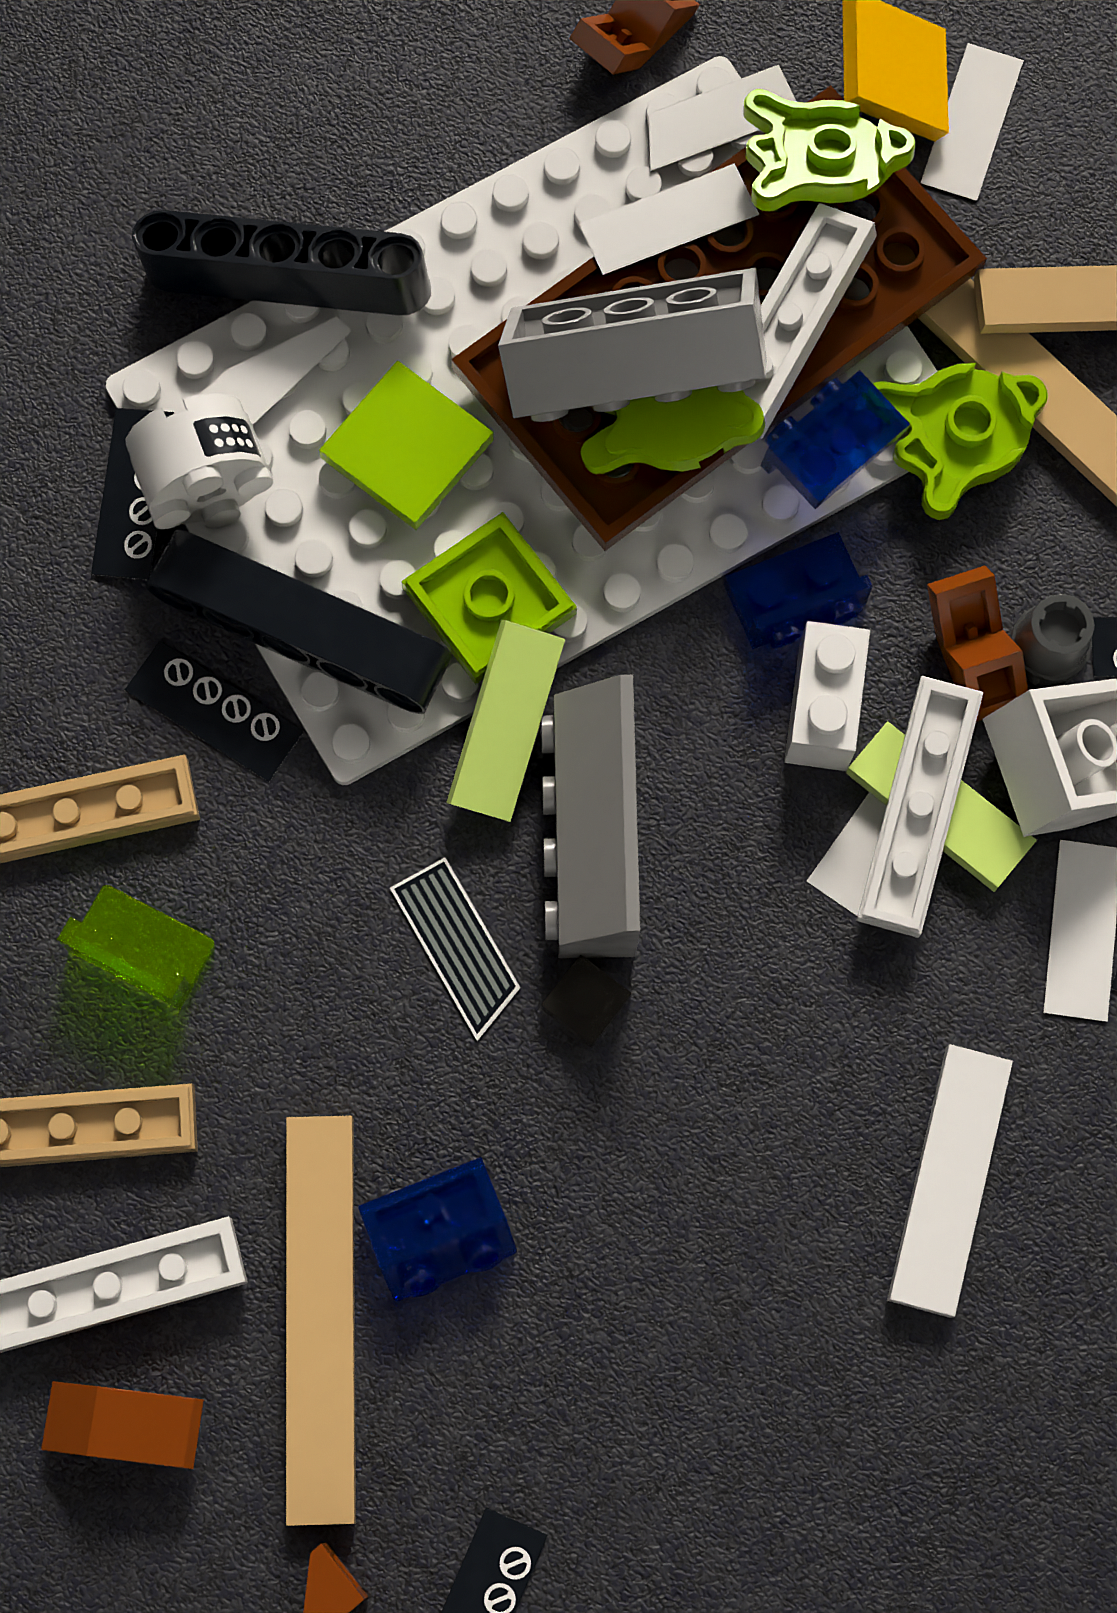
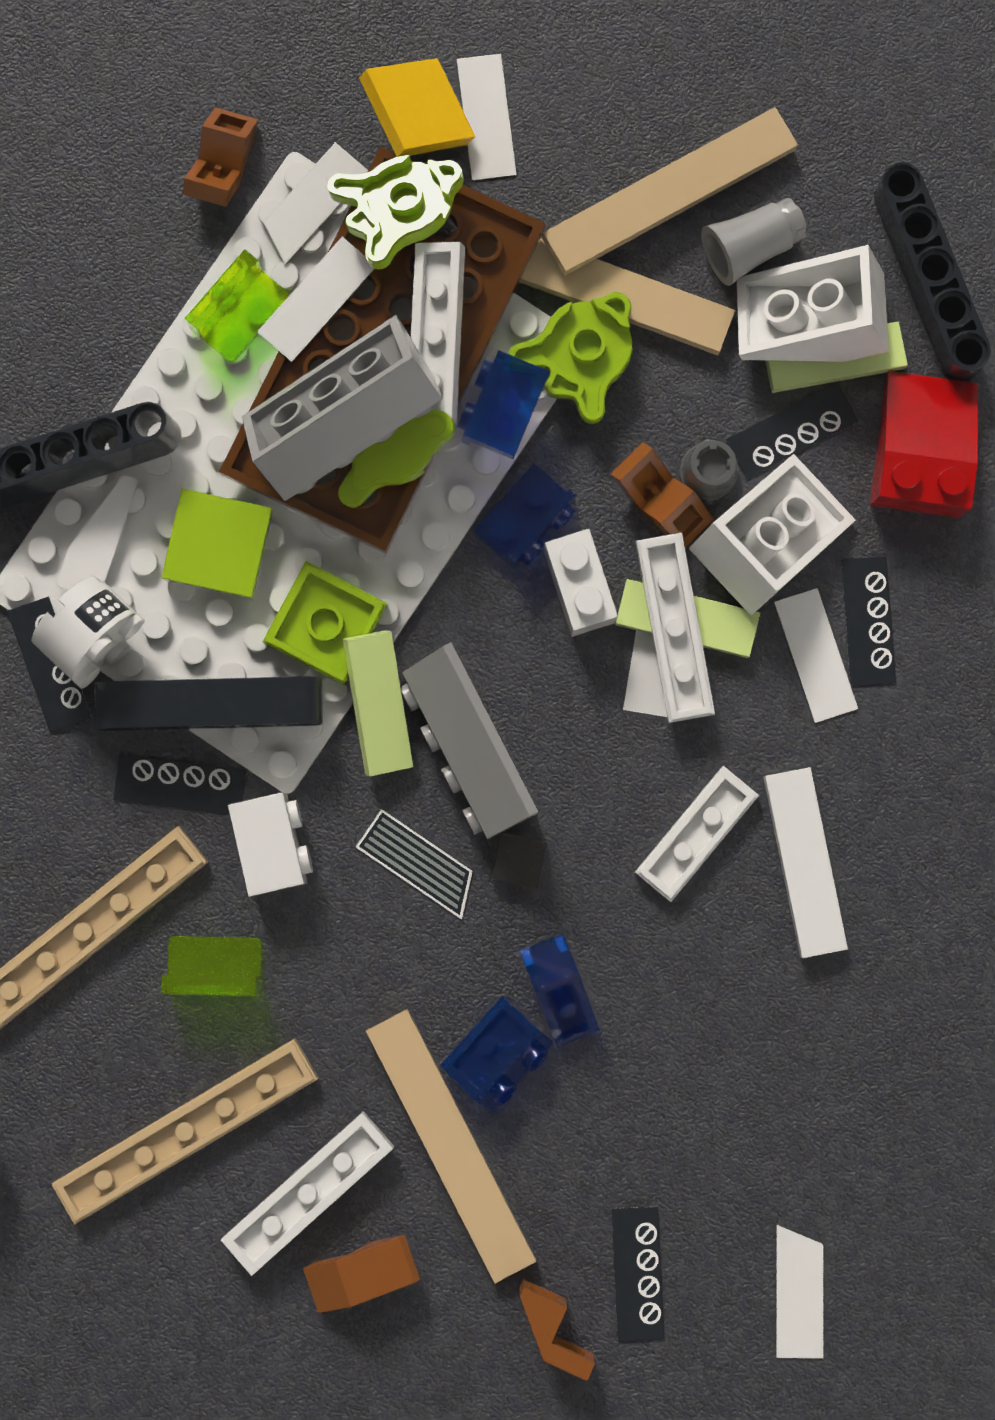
camera: 25 degrees left, 10 degrees up
(286, 828) = (270, 844): none -> white brick
(557, 1186) = (560, 990): none -> clear blue slope
(565, 185) = (236, 307): none -> clear neon green panel
(826, 1076) = (696, 833): none -> white tile

